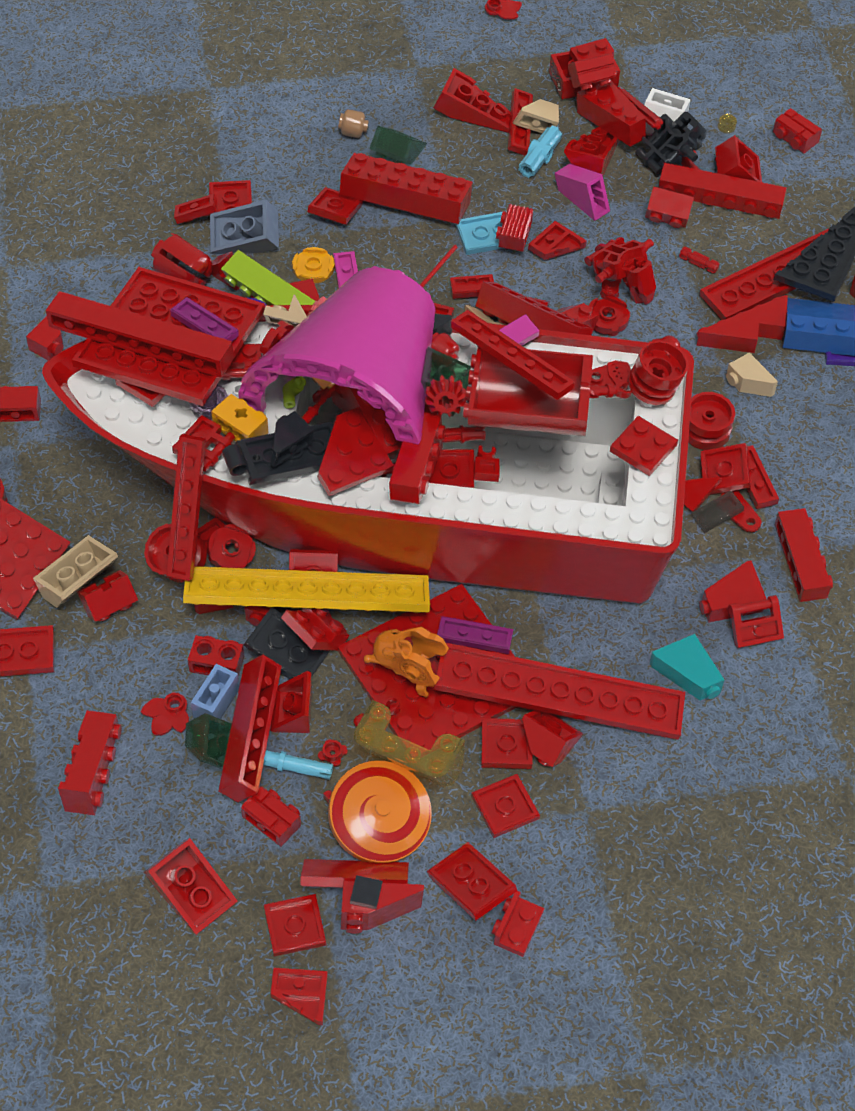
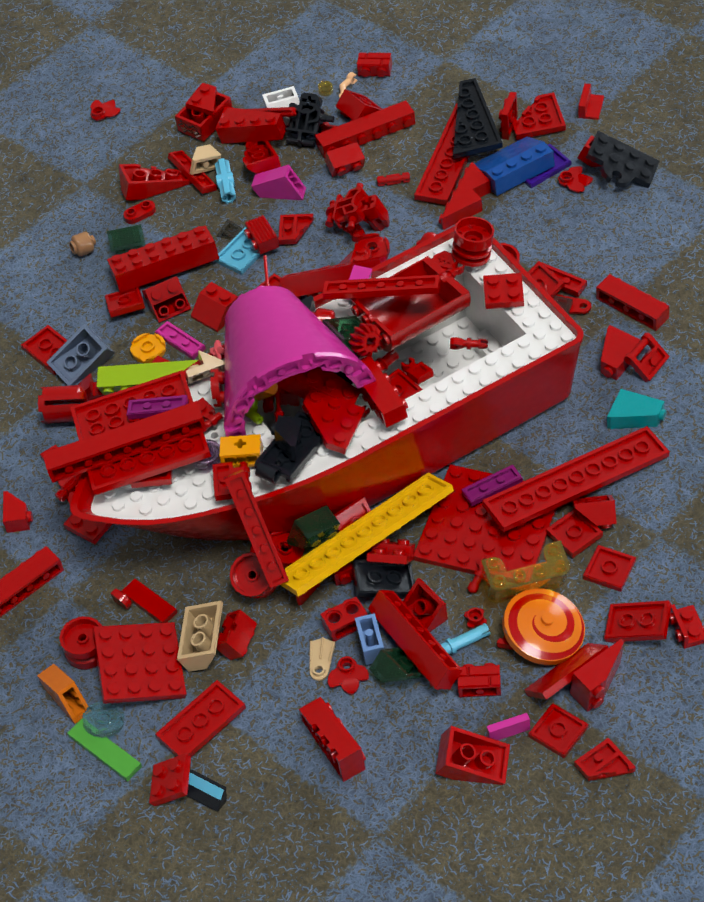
camera: 30 degrees left, 5 degrees down
(52, 484) = (121, 598): none -> red tile
(75, 506) = (149, 601): none -> red tile
(163, 677) = (320, 657): none -> tan piece
(195, 208) = (31, 366): red plate -> none
(250, 883) = (509, 727): none -> dark pink tile
(264, 549) = (313, 528): none -> clear green slope
(366, 892) = (594, 667): black tile -> none
(372, 229) = (166, 299): none -> red slope
(409, 660) = (471, 522): orange helmet -> none
(411, 260) = (212, 306): none -> red slope
(436, 128) = (139, 212): none -> red plate
(496, 202) = (229, 230): none -> clear smoke slope
(563, 474) = (459, 343): none -> red piece
(591, 71) = (217, 106): red brick -> none
(751, 376) = (502, 222): tan slope -> none
(760, 130) = (349, 80): none -> light nougat arm

